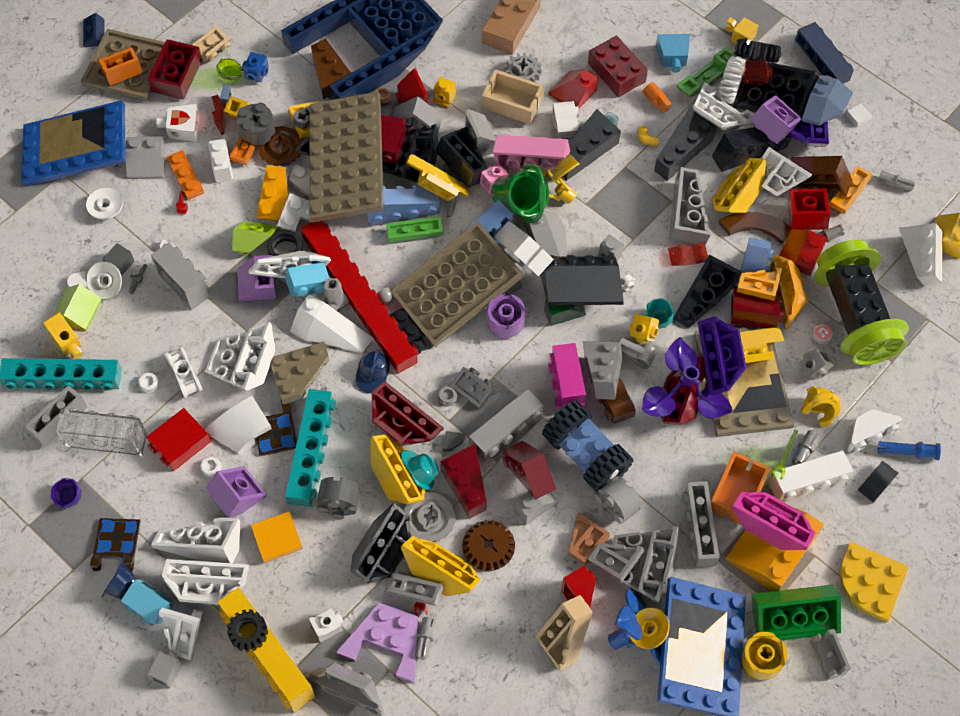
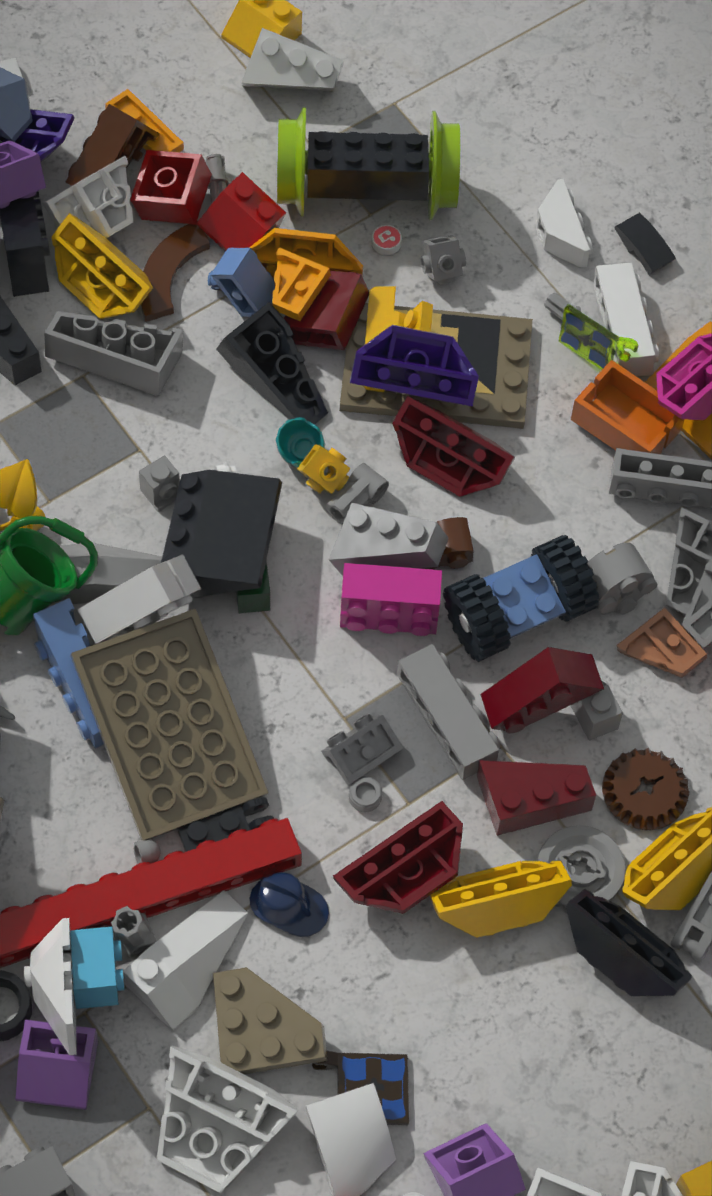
camera: 80 degrees left, 0 degrees up
(276, 537) = (573, 1115): light orange tile -> none
(315, 401) = (427, 1047): teal brick -> none
(338, 497) = (530, 996): dark grey brick -> none
(414, 229) = (24, 777): bright green plate -> none
(421, 467) = (497, 855): teal piece -> none
(452, 440) = (453, 799): dark grey tile -> none
(506, 316) = (248, 664): medium lavender brick -> none
(682, 357) = (404, 426): dark purple plant -> none
(690, 255) = (195, 376): clear red slope -> none
(822, 401) = (508, 269): yellow helmet -> none
(895, 180) = (145, 65): light grey axle -> none
(919, 449) = (606, 179): blue pin -> none

